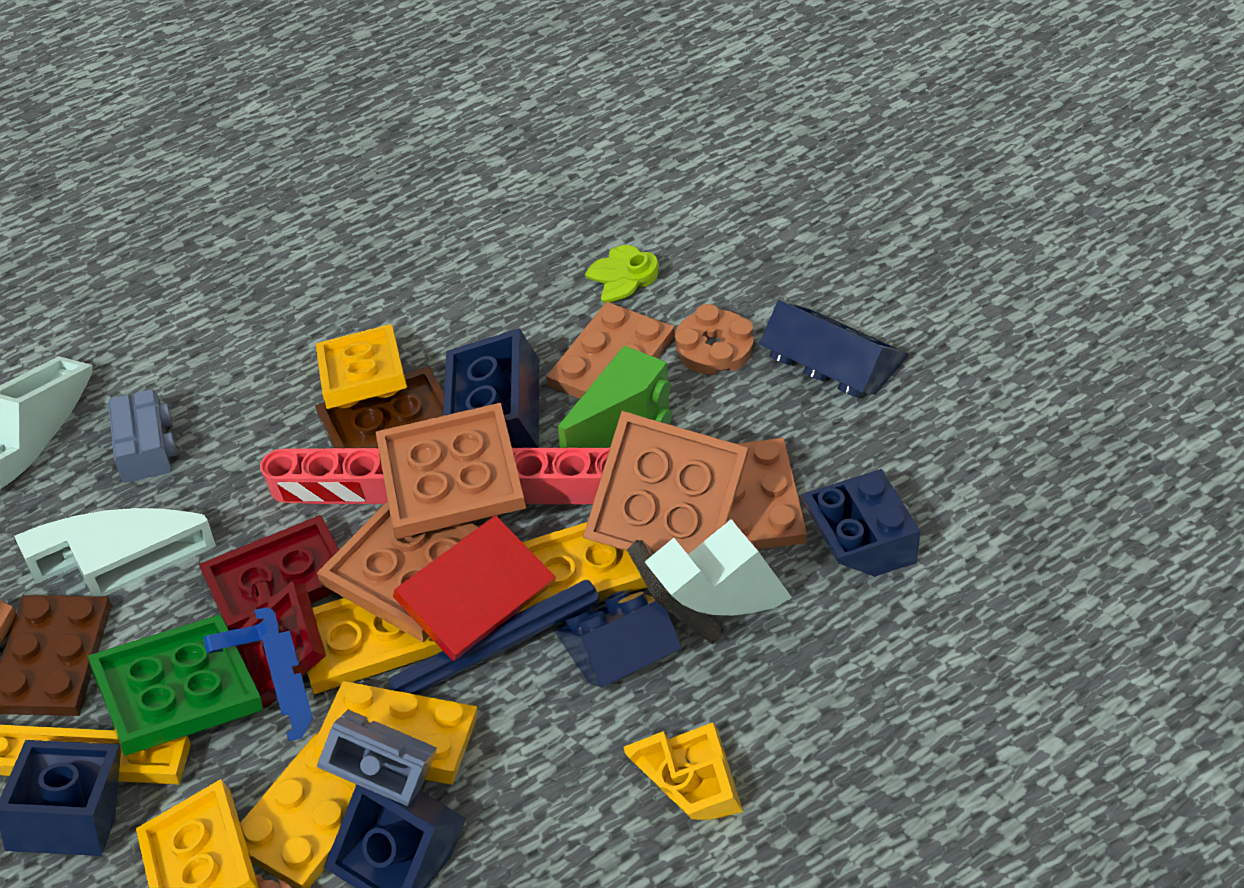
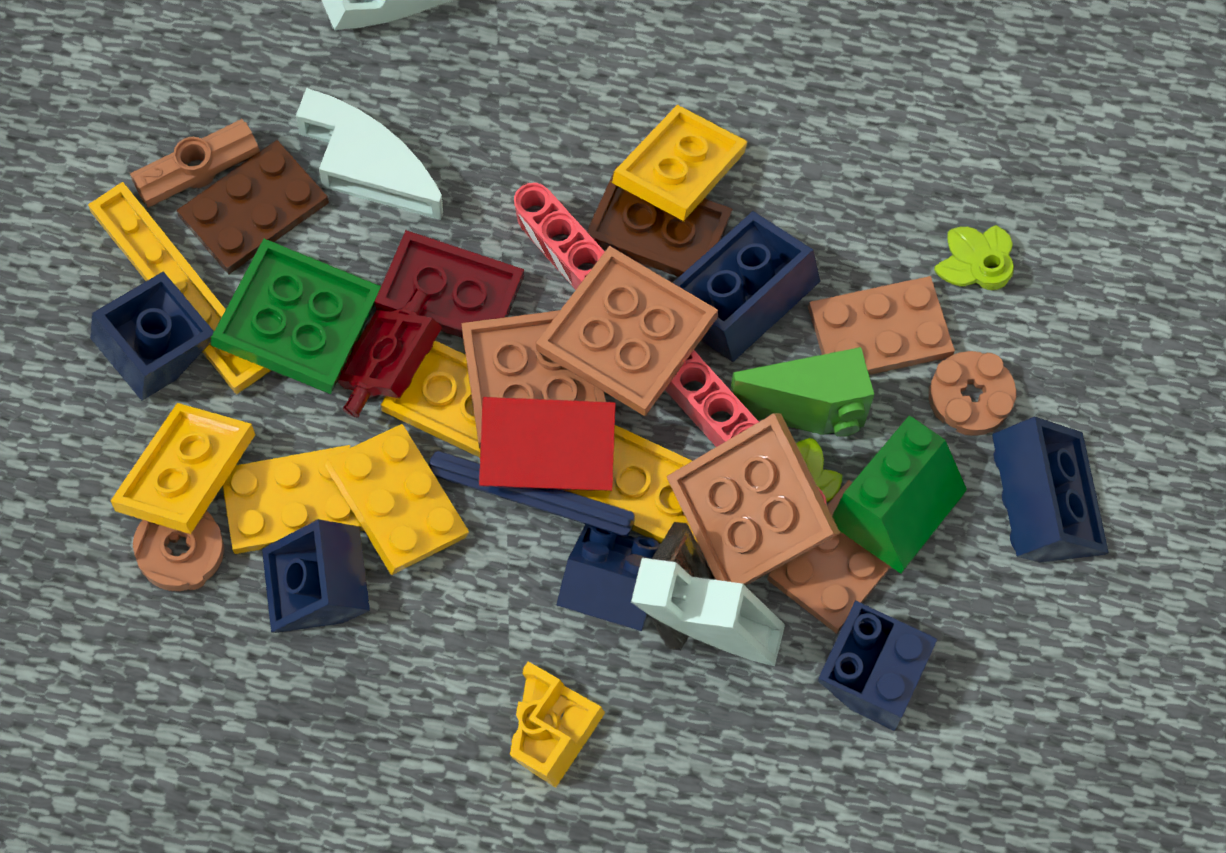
camera: 40 degrees right, 20 degrees up
(140, 435) = (475, 73): sand blue brick -> none
(280, 658) = (364, 374): blue piece -> none
(376, 757) = (344, 515): sand blue brick -> none
(750, 414) = (901, 495): none -> green slope

